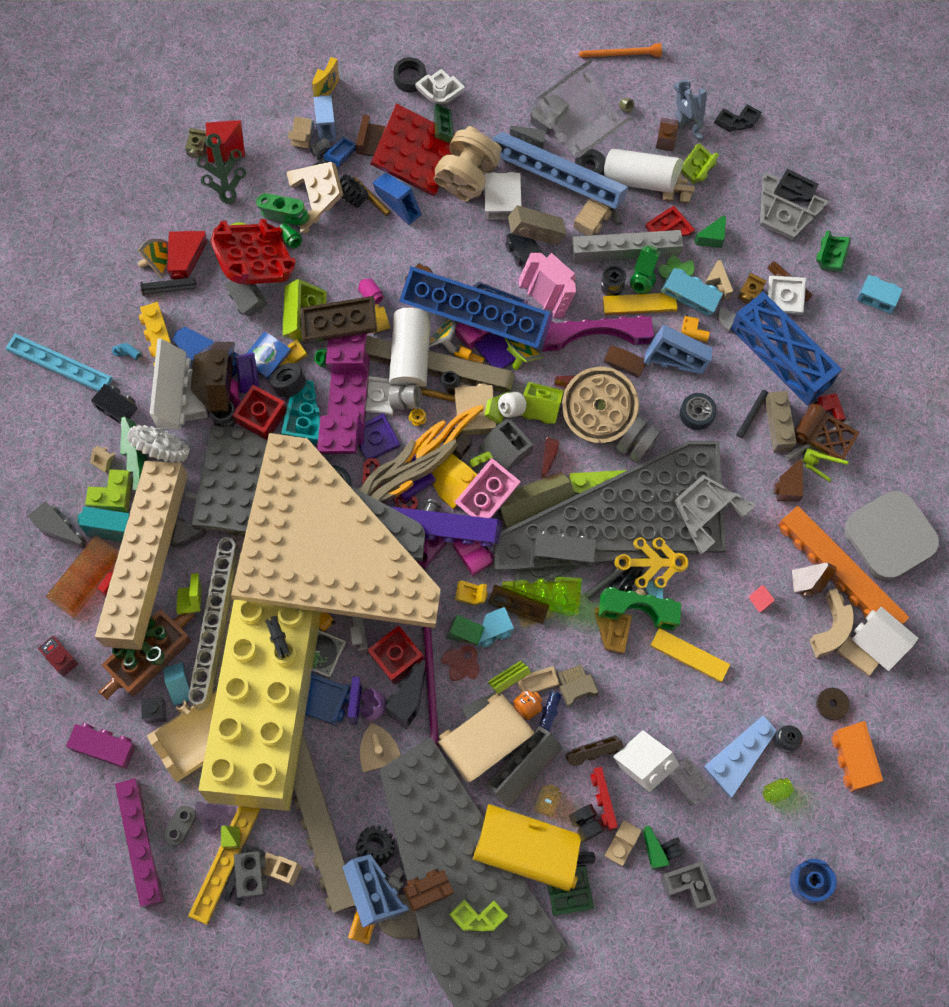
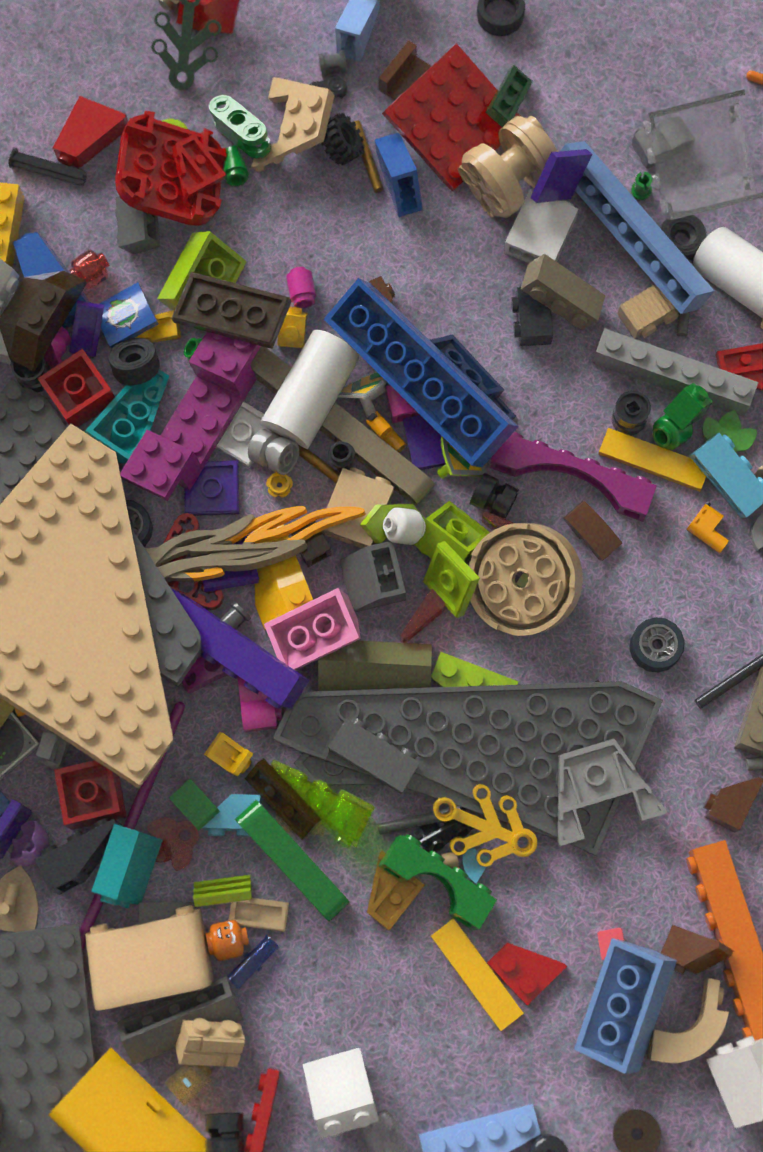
camera: 30 degrees right, 5 degrees up
(156, 255) = (47, 119): shield -> none
(229, 333) = (90, 268): none -> clear red head
(268, 243) = (195, 166): none -> red wing
(302, 132) = (318, 31): tan brick -> none
(340, 151) = (355, 79): blue tile -> none
(440, 87) = (530, 44): white brick -> none
(443, 687) = (126, 866): none -> teal brick
(480, 459) = (326, 580): lime tile -> none
(502, 156) = (561, 175): none -> dark purple tile
(532, 136) = (619, 162): dark grey slope -> none
(544, 636) = (292, 860): none -> green beam
(549, 282) = (541, 378): bright pink slope -> none
(550, 769) = (210, 1043): none -> tan brick
(551, 144) = (642, 187): none -> green pin
(555, 365) = (494, 496): none -> black wheel
(556, 424) = (451, 579): none -> lime tile
(576, 685) = (304, 942): dark tan piece -> none
(593, 750) = (284, 1042): dark brown hinge -> none
(639, 439) = (554, 652): flat silver wheel -> none
(678, 350) = (671, 550): medium blue wedge -> none
(717, 639) = (525, 971): none -> red wing
(788, 629) = (625, 1006): none -> medium blue slope
(857, 656) = (703, 1086): tan tile -> none

